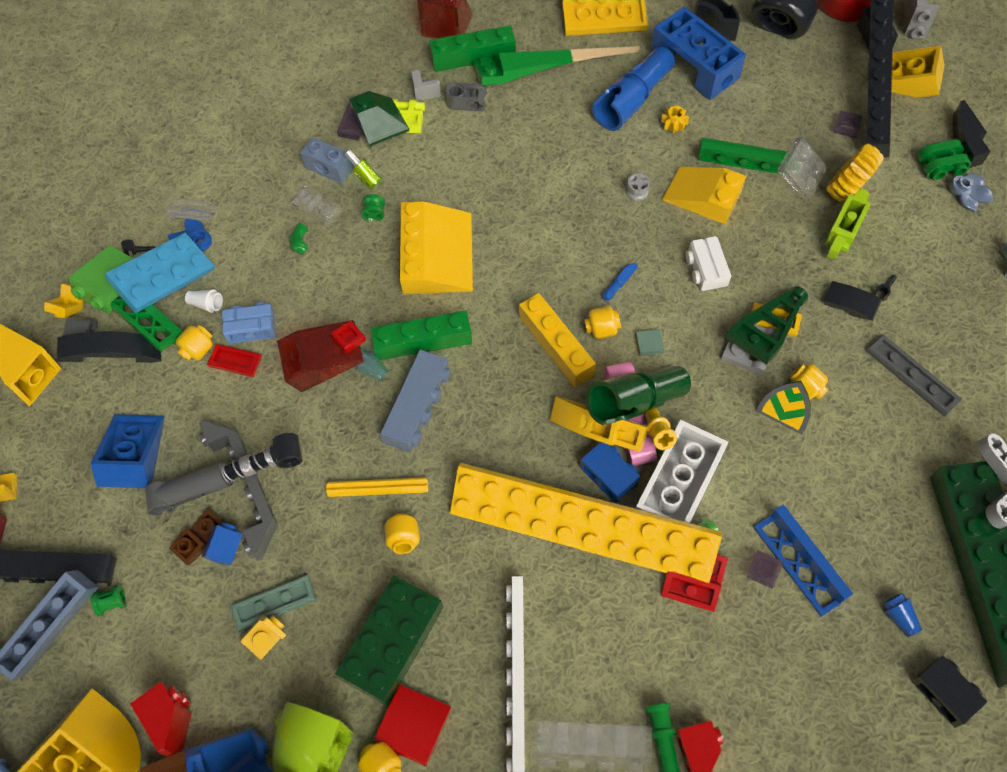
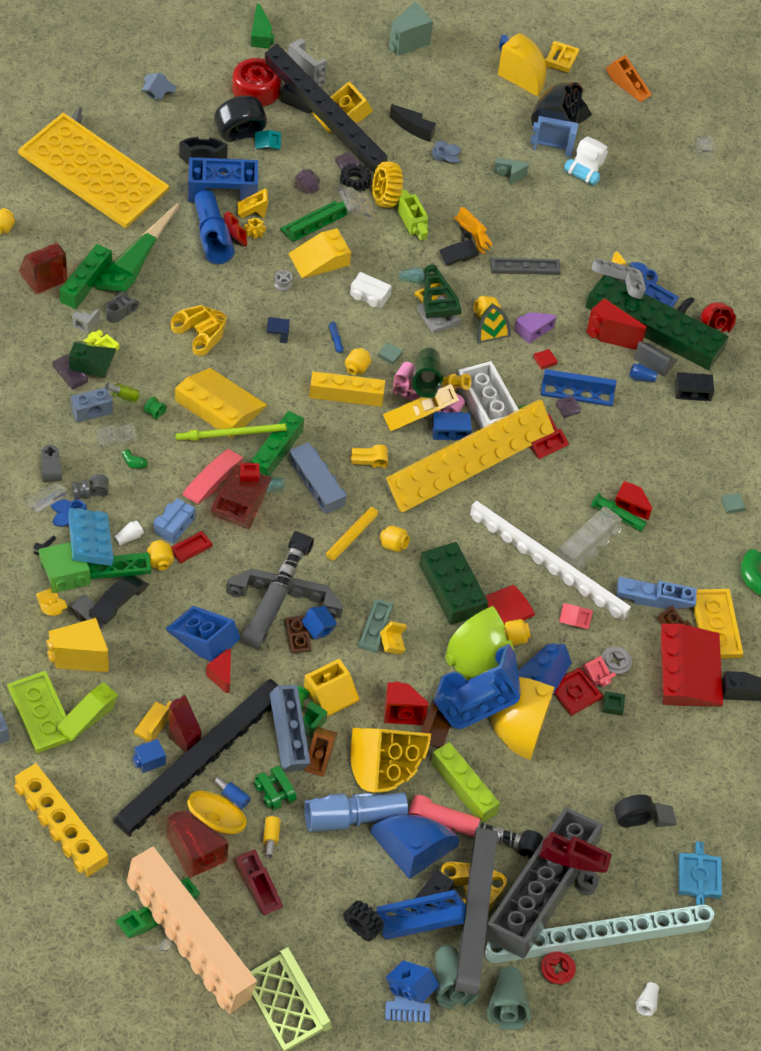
camera: 60 degrees left, 10 degrees down
(54, 675) = (321, 751): none -> dark orange slope
(90, 502) = (220, 670): none -> red slope
(92, 636) = (314, 718): none -> green panel
(141, 624) = (331, 687): none -> yellow slope
(221, 226) = (80, 490): none -> dark grey wheel
(230, 185) = (51, 464): none -> dark grey piece
(239, 235) = (99, 485): none -> dark grey wheel
(332, 310) = (210, 478): none -> coral slope
(373, 263) = (195, 435): none -> lime bar
(495, 430) = (375, 456): none -> yellow piece
(514, 176) = (205, 322): none -> yellow connector
(572, 227) = (279, 326): none -> dark blue panel
(654, 105) = (234, 228): none -> red slope
(702, 96) = (255, 203): none -> yellow slope
(772, 283) = (412, 275): none -> clear light blue cone
(782, 113) = (307, 181): none -> head
(794, 49) = (268, 139): none -> teal panel
(807, 493) = (545, 359): none -> red tile
(838, 135) = (358, 171): none -> black tyre
(838, 446) = (534, 325): none -> medium lavender slope
(901, 291) = (475, 227): none -> light orange arm
(928, 529) = (614, 326): none -> red slope
(943, 610) = (654, 358): none -> dark grey slope
(944, 158) = (419, 151): green brick -> none

